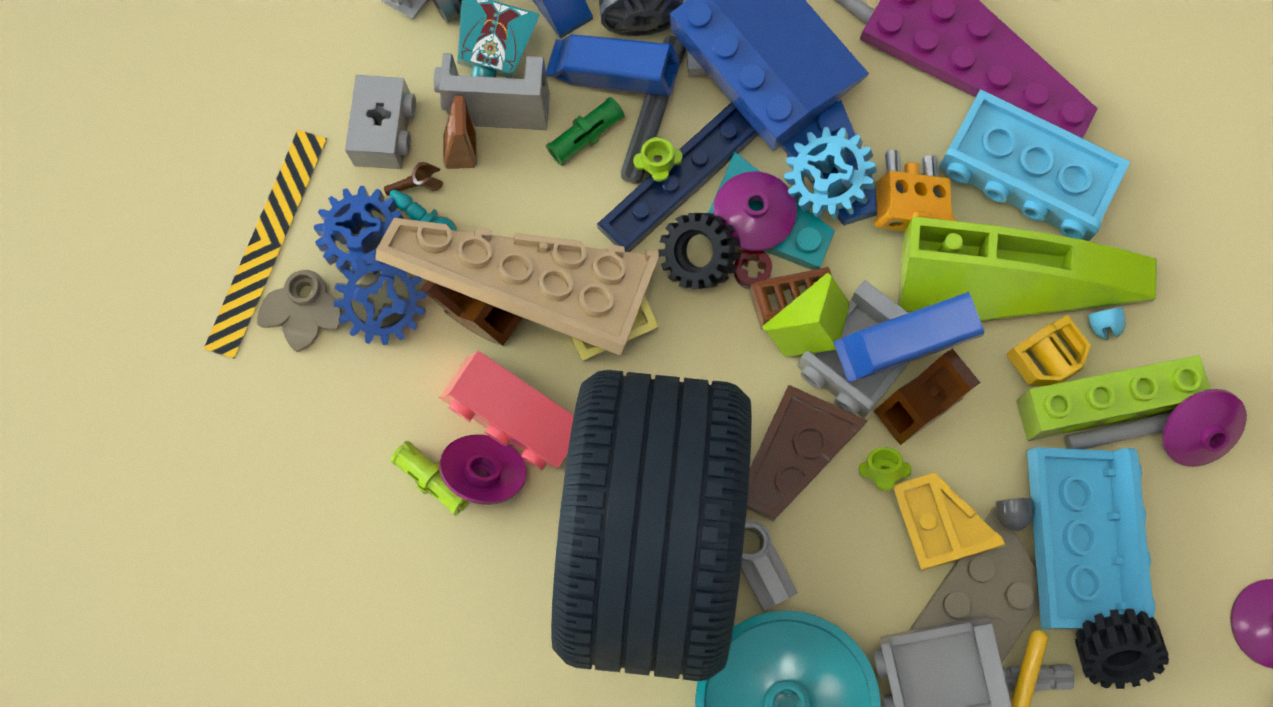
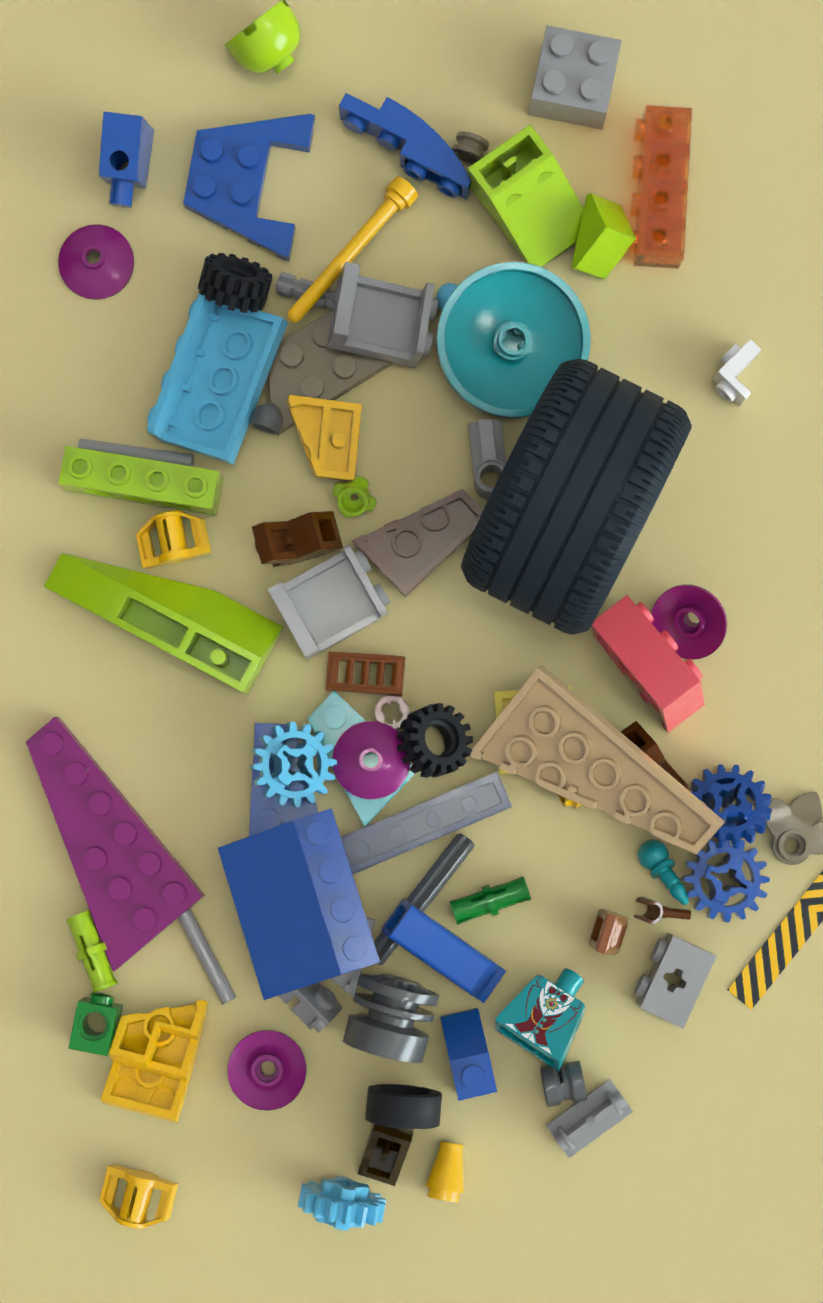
camera: 160 degrees left, 10 degrees up
(427, 476) = (738, 638): lime pin -> none
(498, 100) = (532, 936): light grey panel -> none
(655, 148) = (433, 853): lime plate -> none
(810, 320) = (362, 641): lime slope -> none
(909, 337) = (293, 586): piece -> none
(910, 193) = (223, 705): light orange piece -> none
(1034, 166) = (109, 709): medium azure bracket -> none
(1111, 318) = (111, 549): medium azure hinge -> none
(1204, 427) = (80, 427): magenta dish -> none

